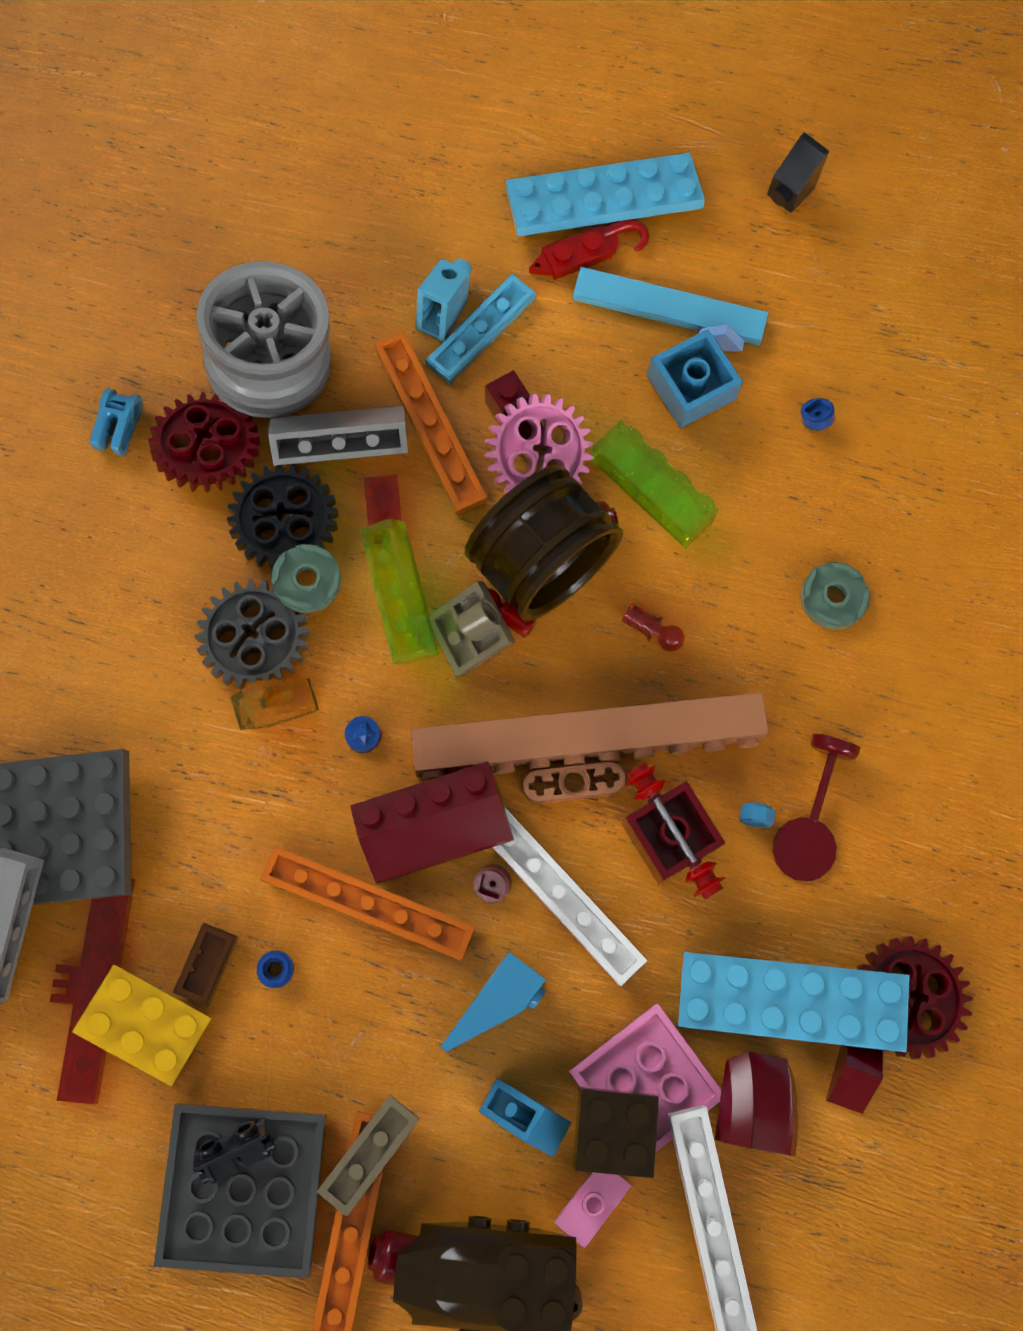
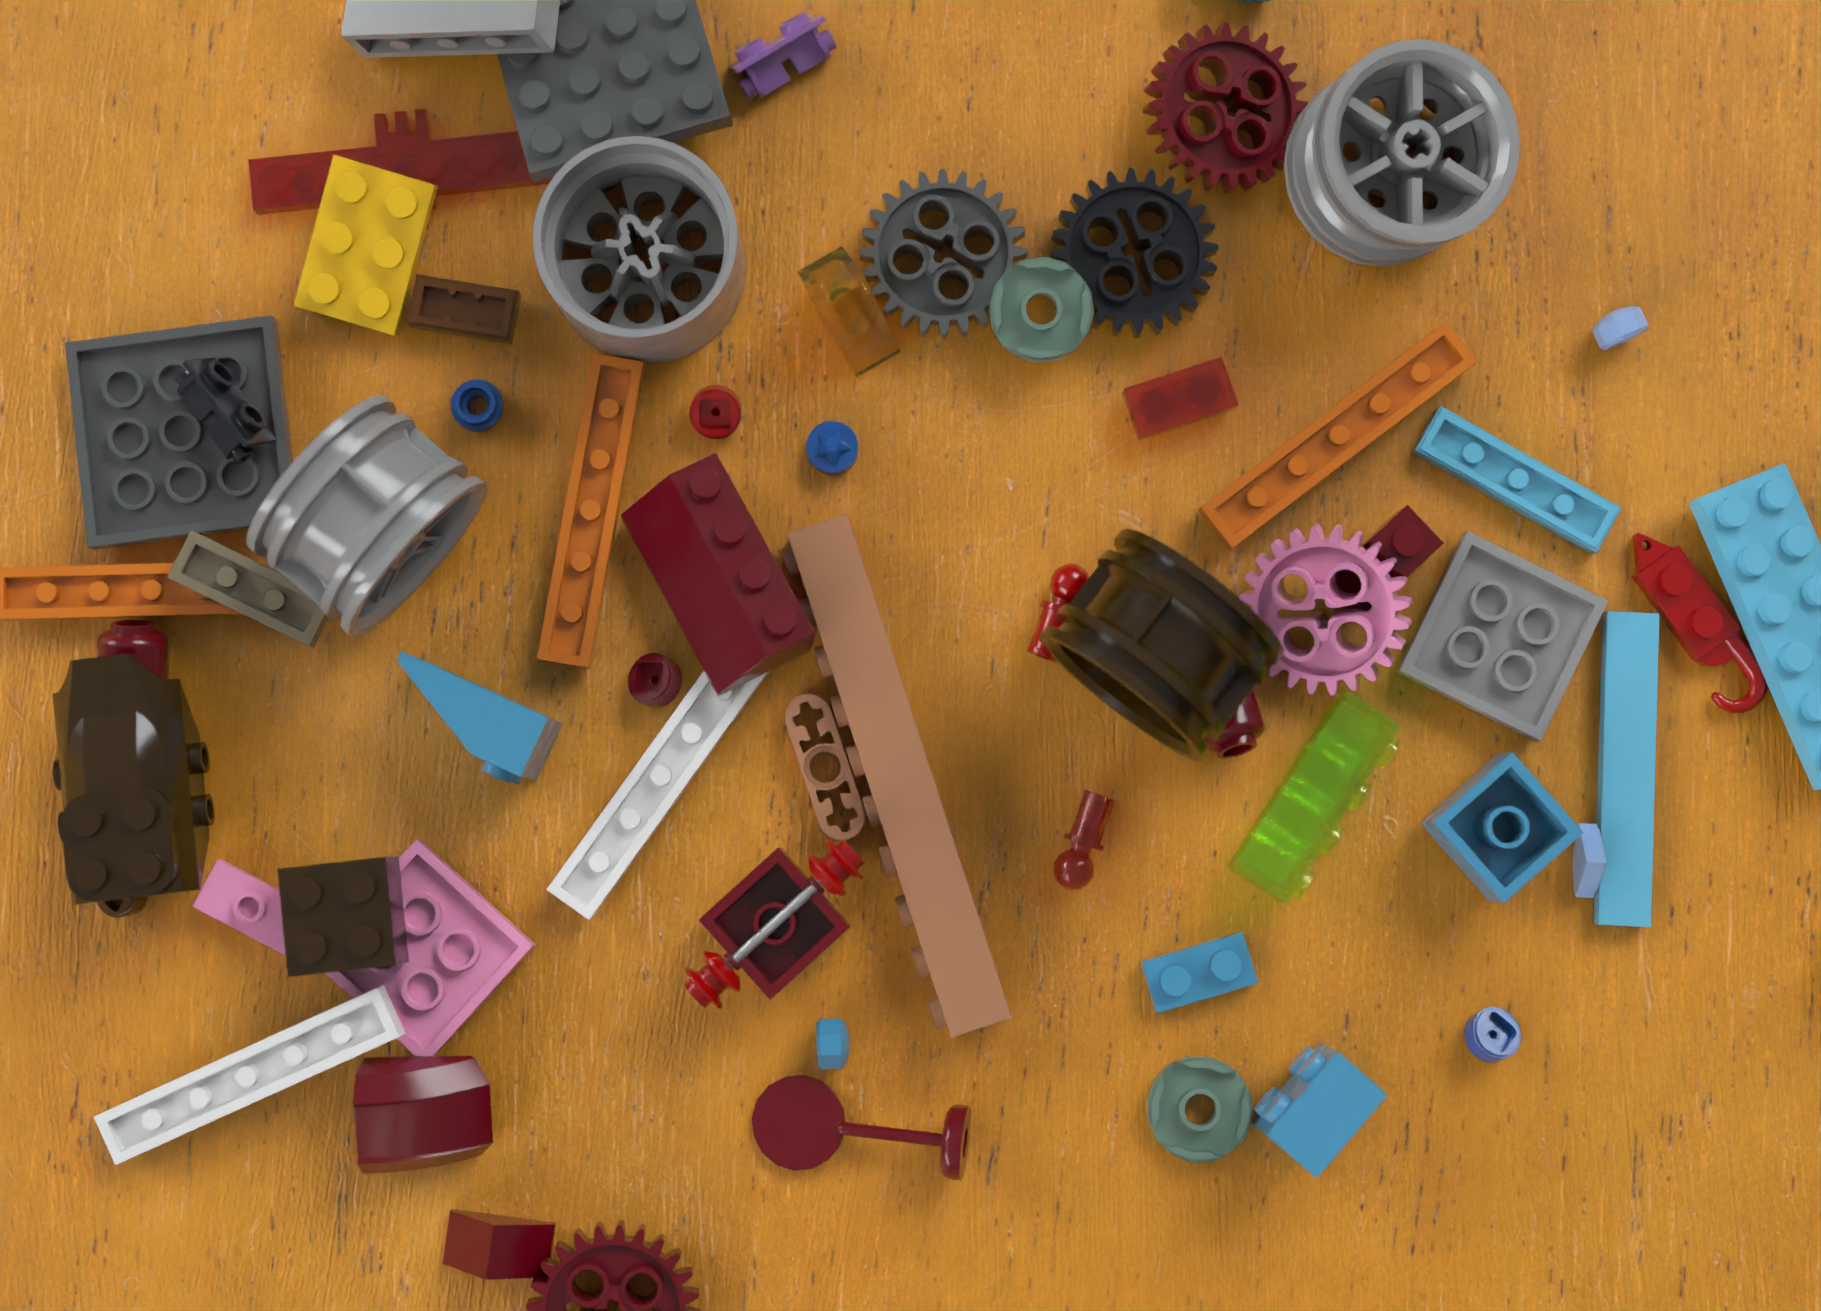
camera: 80 degrees right, 10 degrees up
(83, 699) = (763, 61): none -> medium lavender hinge
(147, 808) = (648, 173): none -> light grey wheel
(320, 805) = (715, 411): none -> red tile
(337, 1055) = (365, 514): none -> light grey wheel
(338, 435) = (1279, 303): light grey brick -> none
(399, 591) = (1047, 449): clear neon green brick -> none
(402, 249) = (1619, 326): none -> light blue tile
(444, 285) = (1549, 409): medium azure torso -> none
(470, 629) = (1018, 567): dark tan plate -> none
(525, 1117) = (344, 791): dark azure slope -> none
(575, 355) = (1502, 636): none -> light grey plate
(749, 577) = (1199, 972): none -> dark azure plate
(794, 1001) = (571, 1139): medium azure plate -> none
(849, 518) = (1317, 1107): none -> dark azure brick

